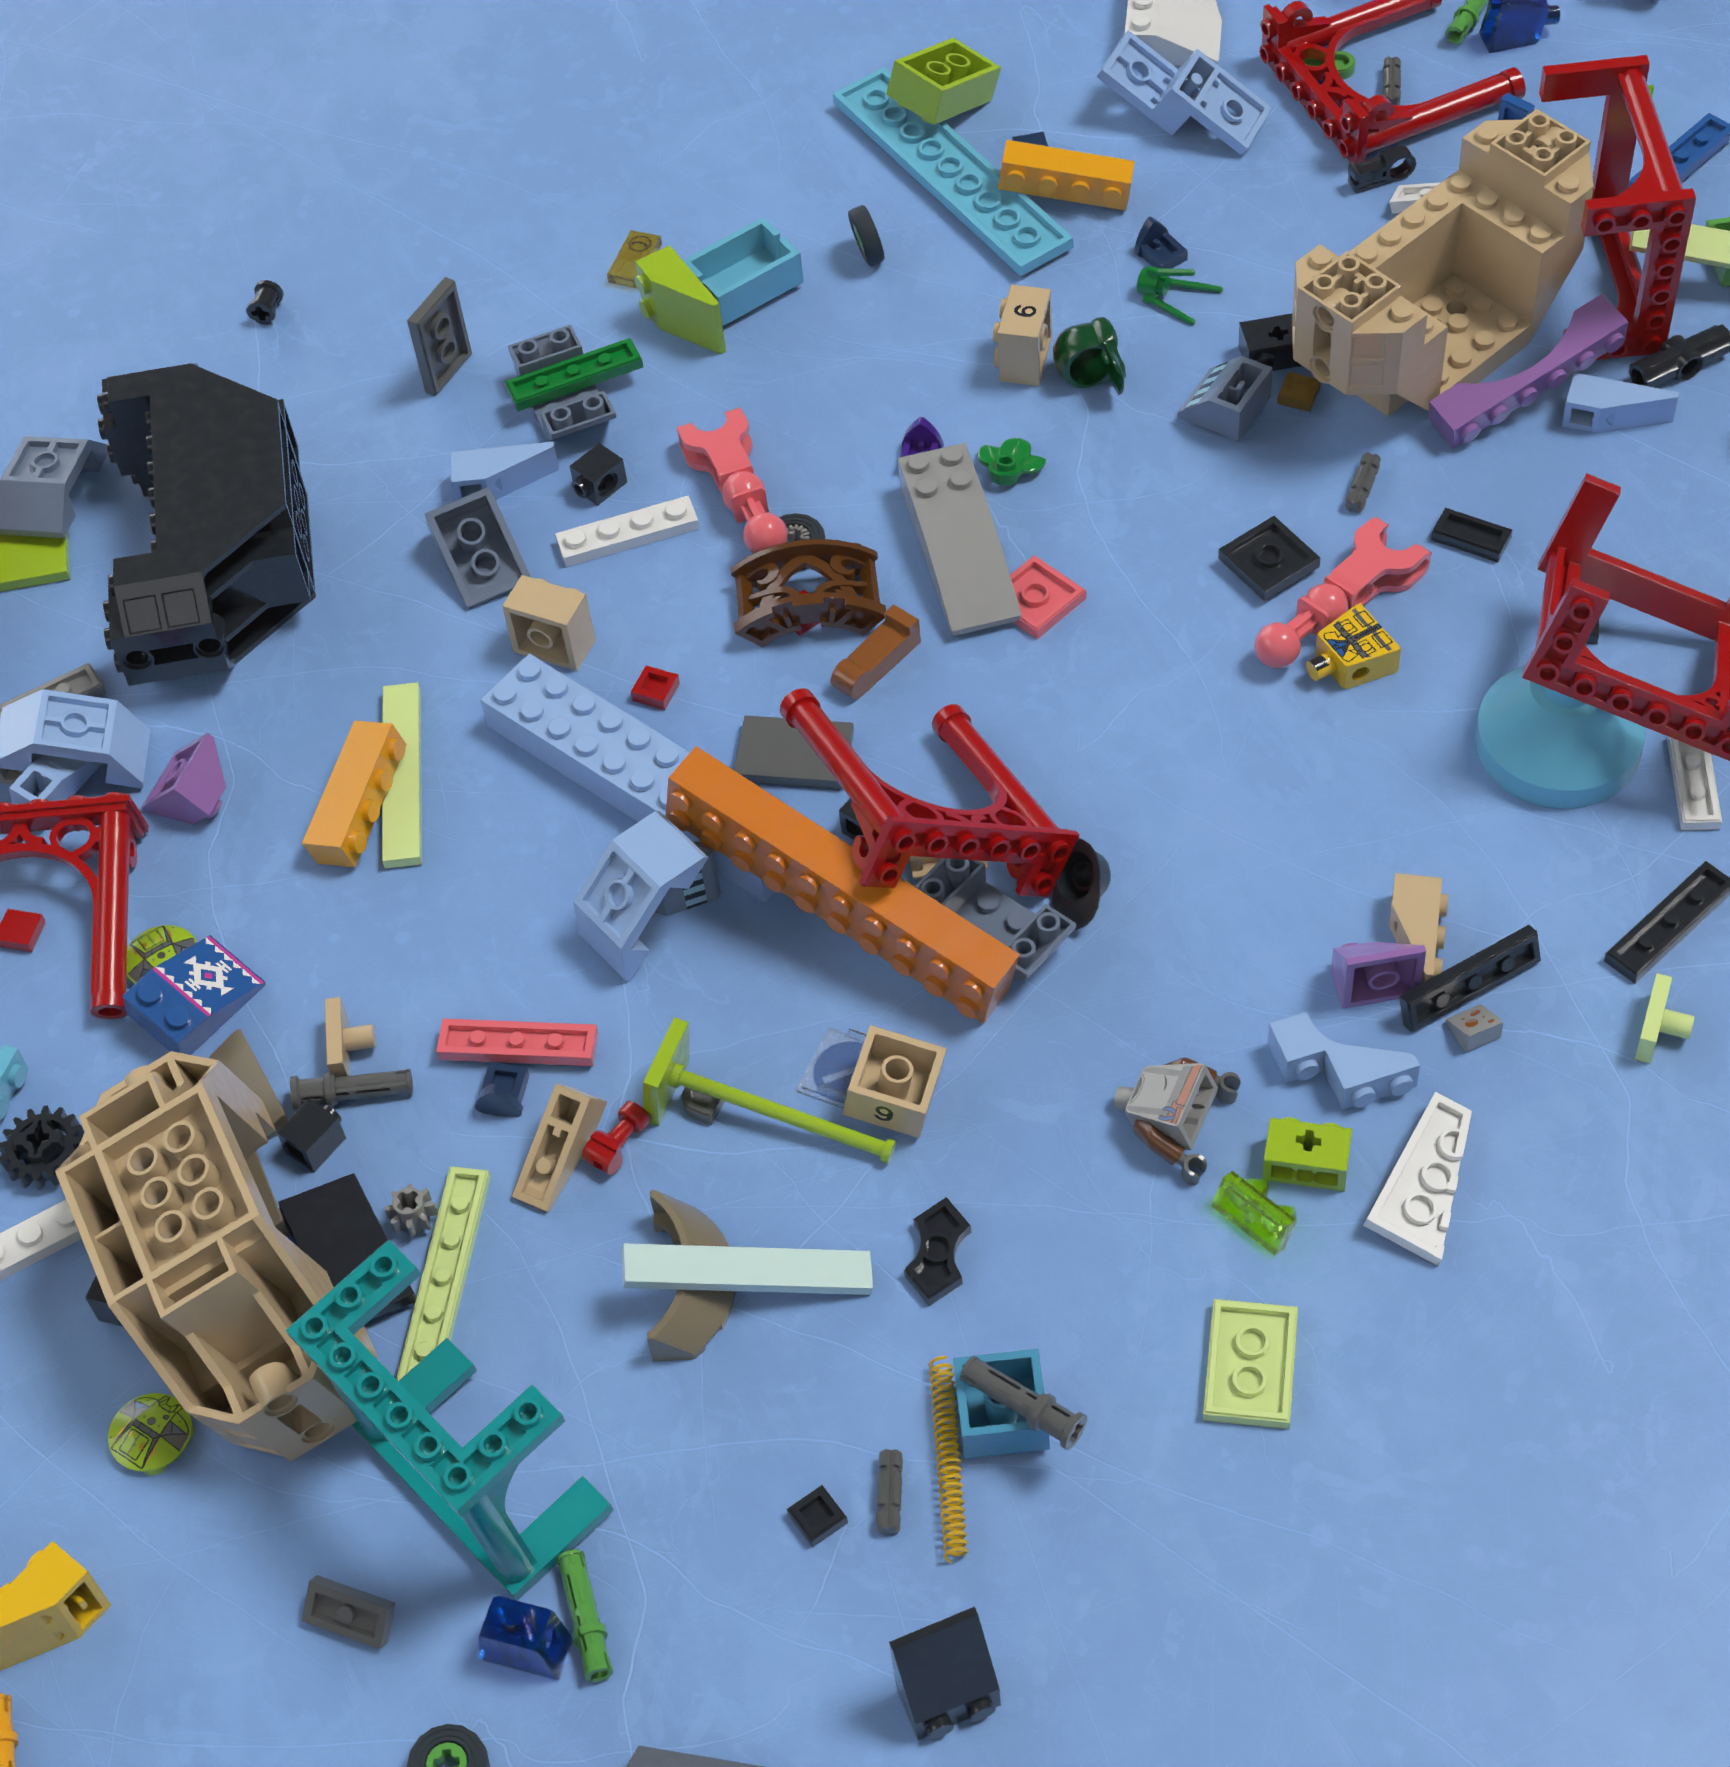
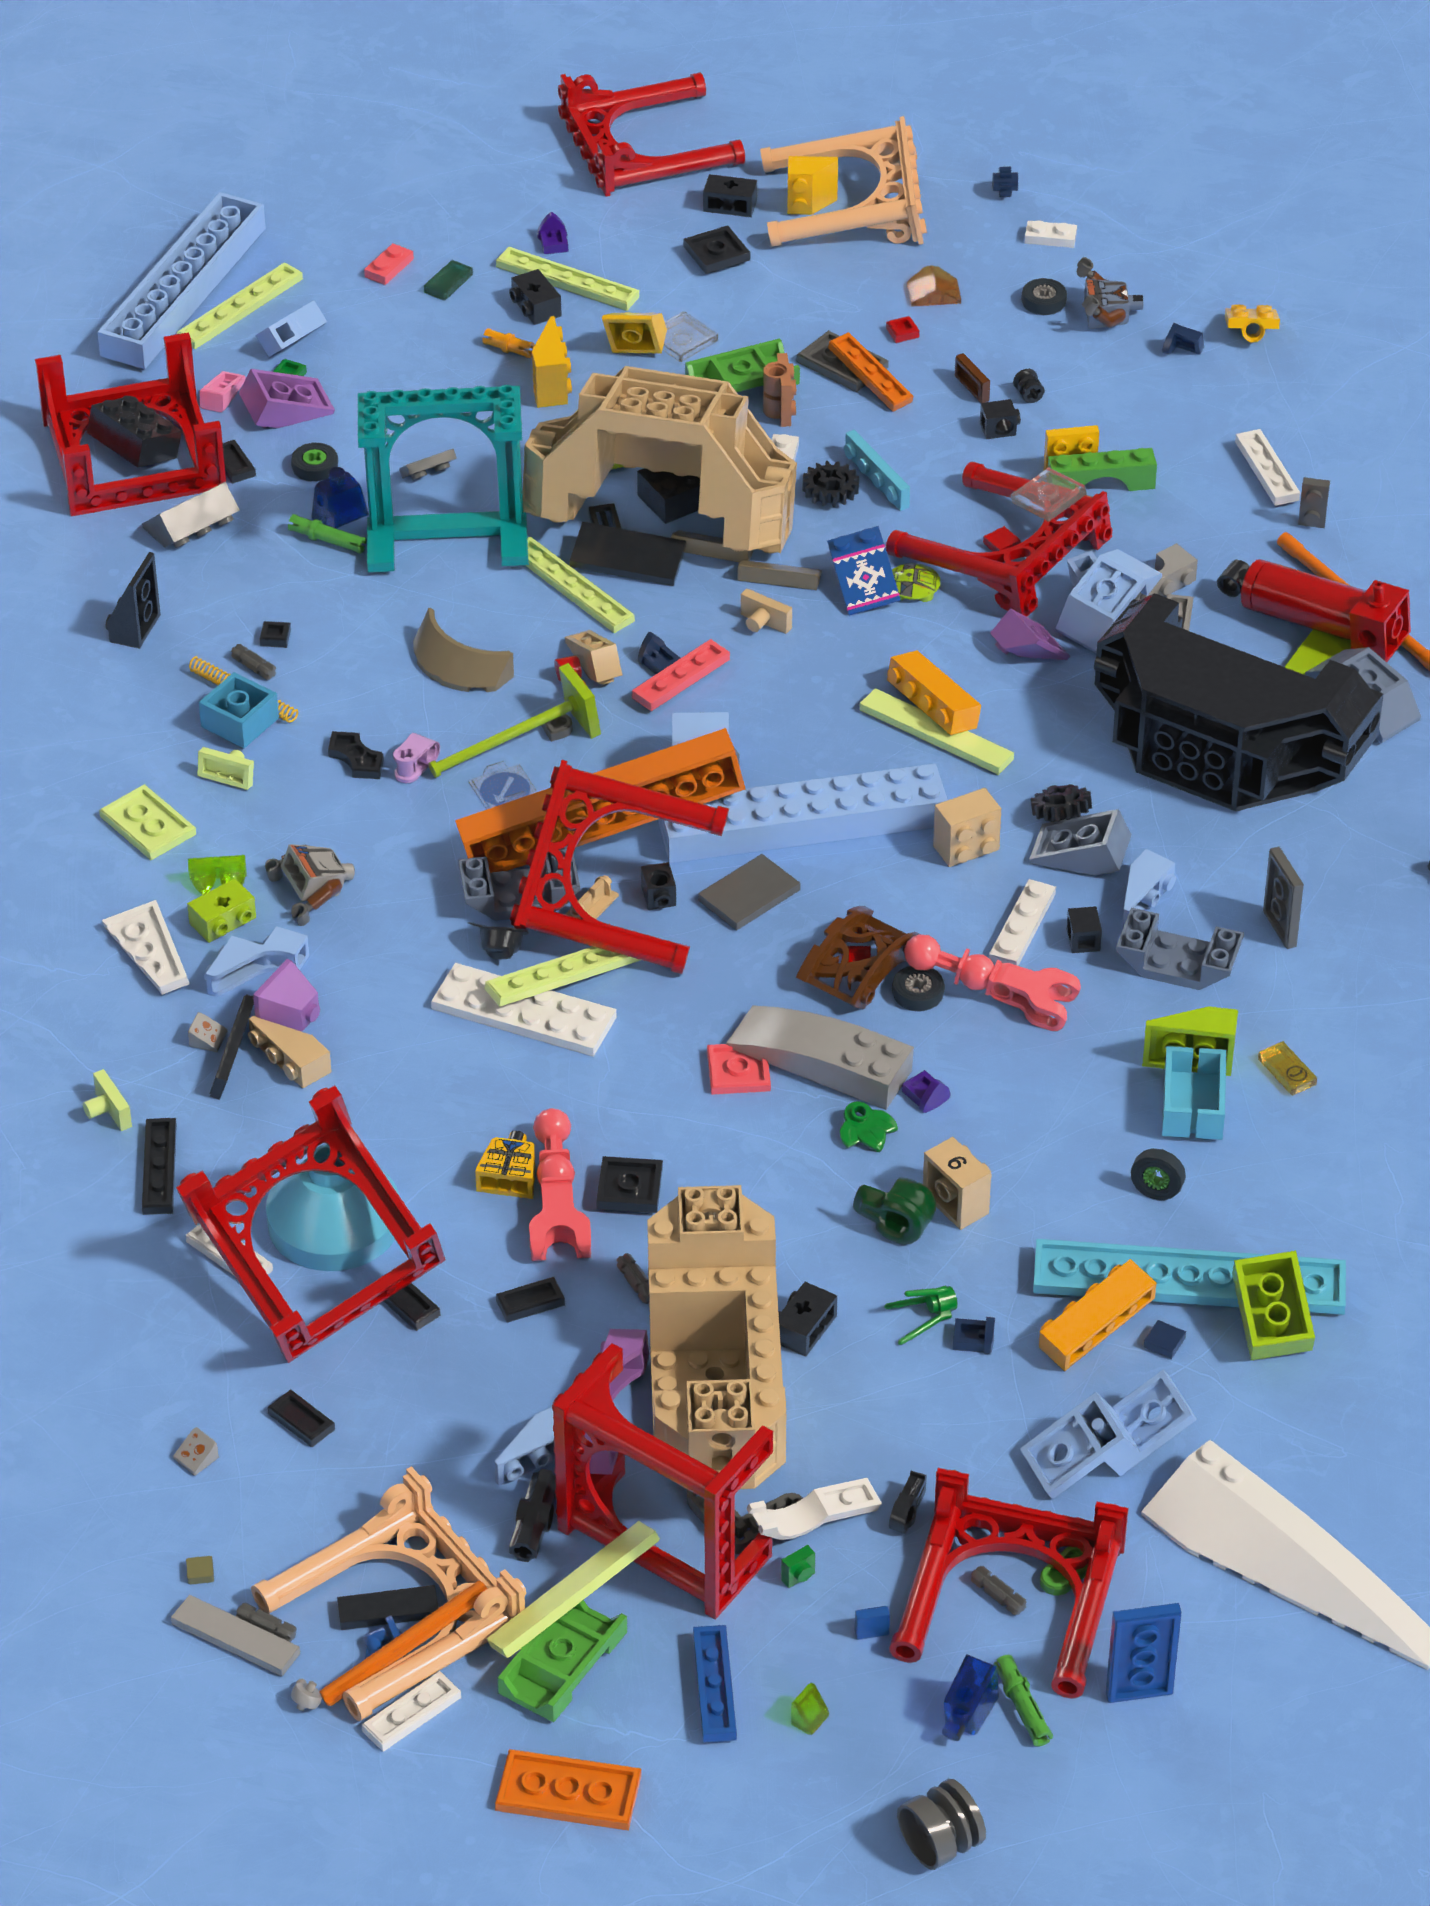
camera: 125 degrees right, 10 degrees down
(312, 1134) = (715, 574): black brick -> none
(332, 1089) = (733, 599): dark grey pin -> none
(411, 1210) = (622, 585): light grey gear -> none
(443, 600) = (1061, 803): none -> black gear
(573, 374) = (1187, 960): green tile -> none
(655, 687) = (874, 864): red tile -> none
(746, 1269) = (423, 664): light aqua tile -> none
(877, 653) = (776, 963): dark orange leg -> none
(888, 1180) = (414, 757): none -> lavender piece
(894, 1081) = (464, 779): tan brick -> none
(1039, 1410) = (205, 693): dark grey pin -> none
(1083, 794) = (554, 974): none -> yellowish green tile
(1092, 1347) = (226, 768): none -> yellowish green tile
(1144, 806) = (542, 1017): none -> white plate
(1229, 397) = (795, 1255): sand blue slope -> none

